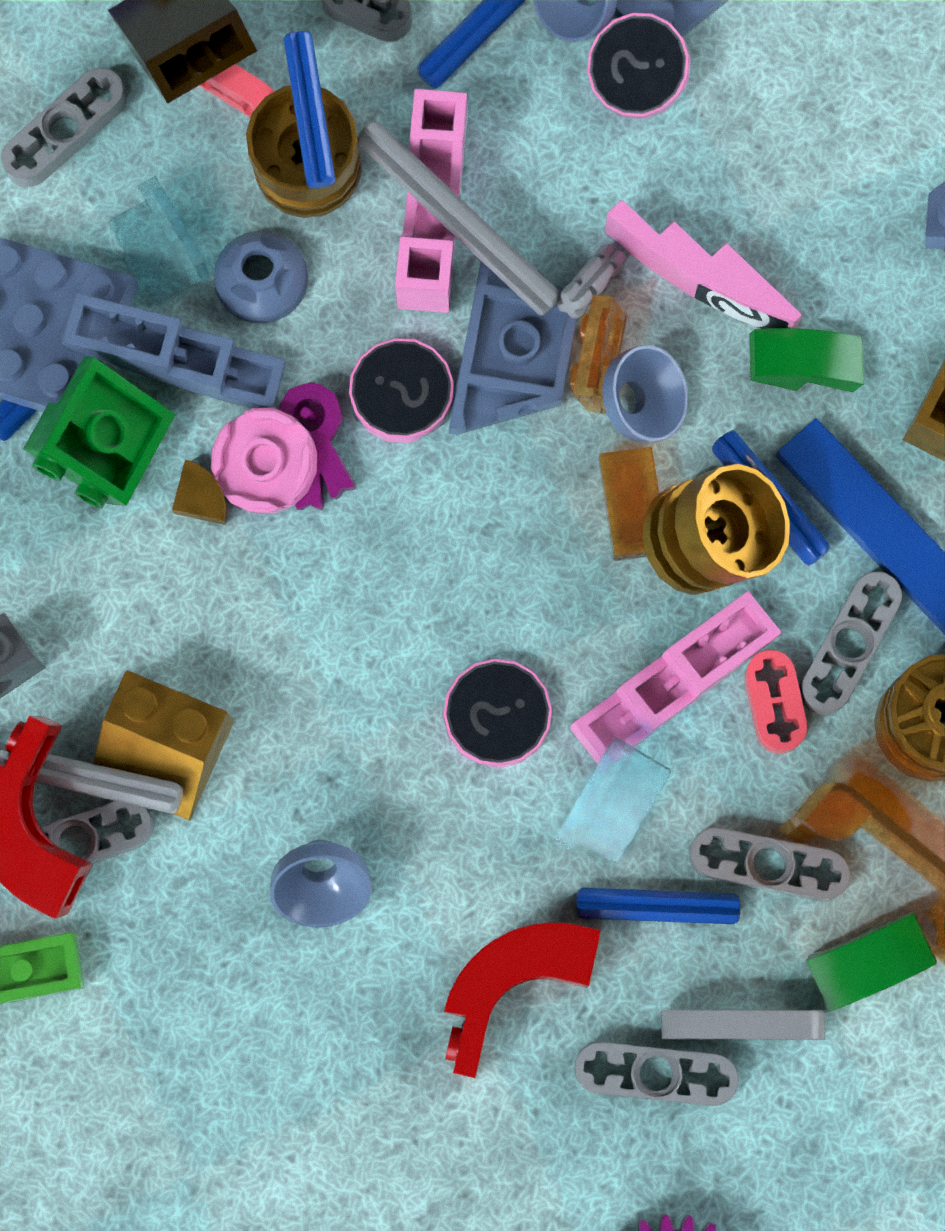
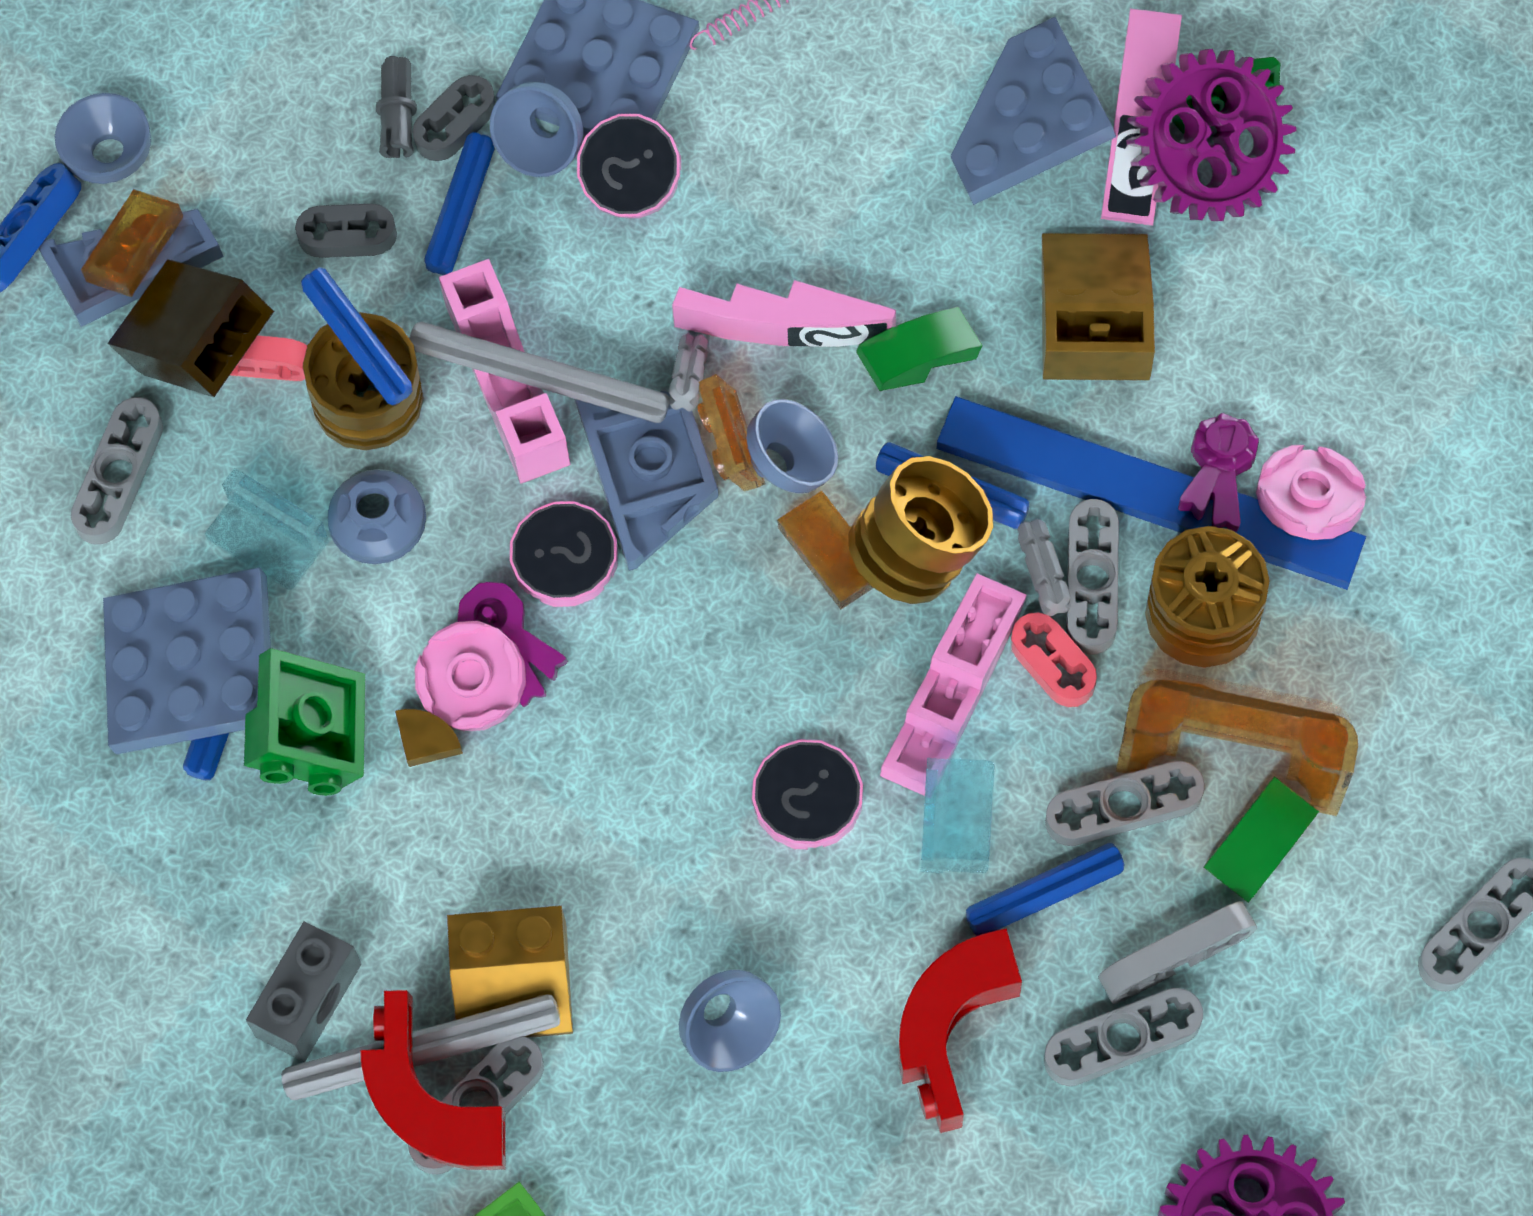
camera: 25 degrees left, 10 degrees down
(172, 353) = (337, 619): sand blue slope -> none
(811, 615) = (1044, 567): none -> light grey axle

